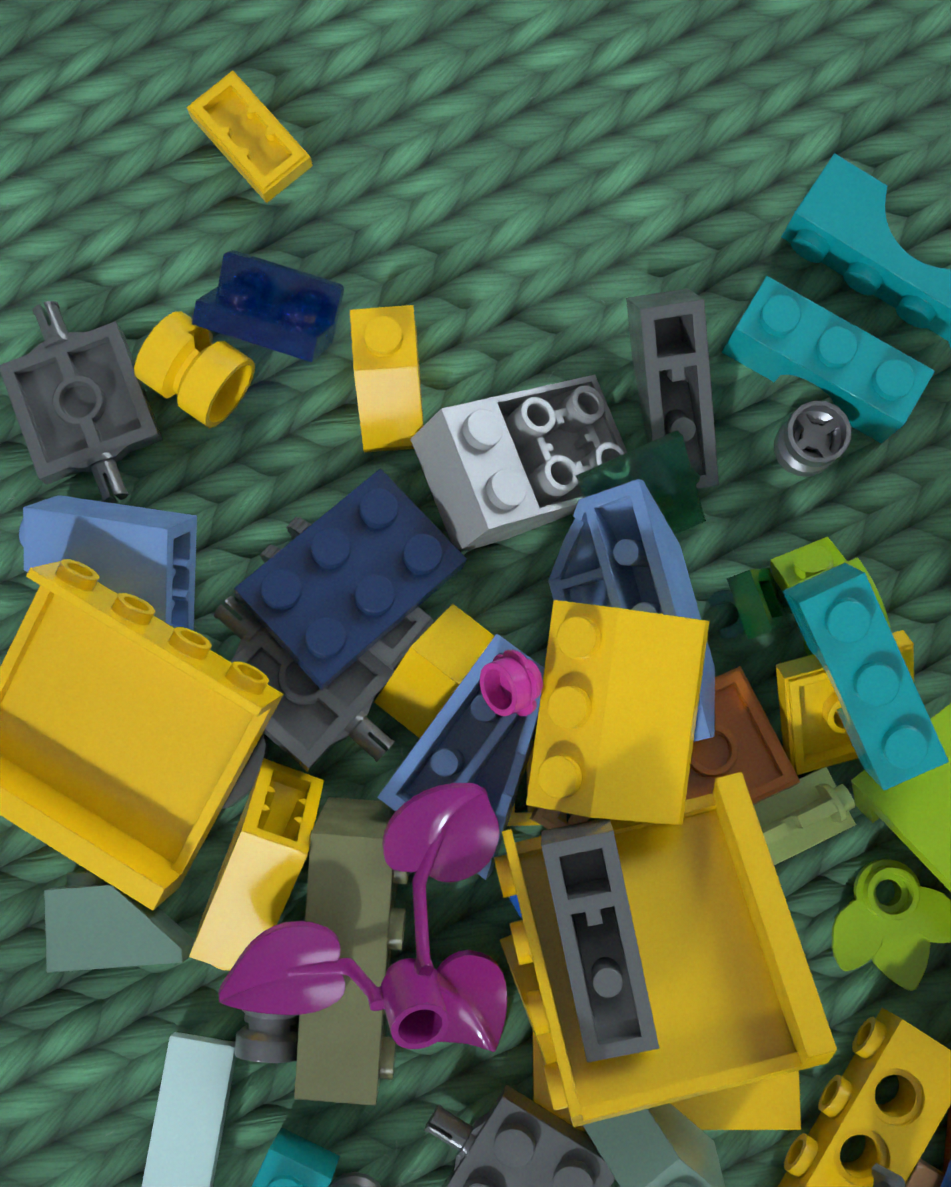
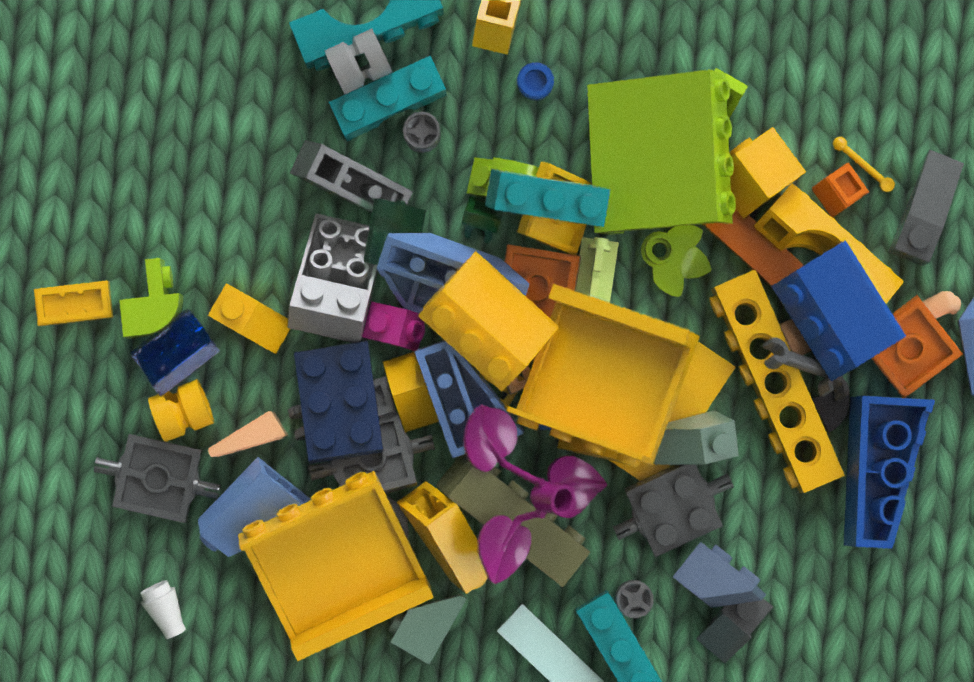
camera: 55 degrees left, 5 degrees up
(237, 496) = (256, 433): none -> light nougat slope
(267, 1038) = (525, 582): flat silver wheel -> none
(301, 239) = (153, 313): none -> lime brick
(511, 684) = (442, 361): dark pink plate -> none
(514, 585) = (394, 326): none -> dark pink bracket
(598, 940) = (579, 399): dark grey slope -> none
(834, 263) = (346, 66): none -> light grey wheel

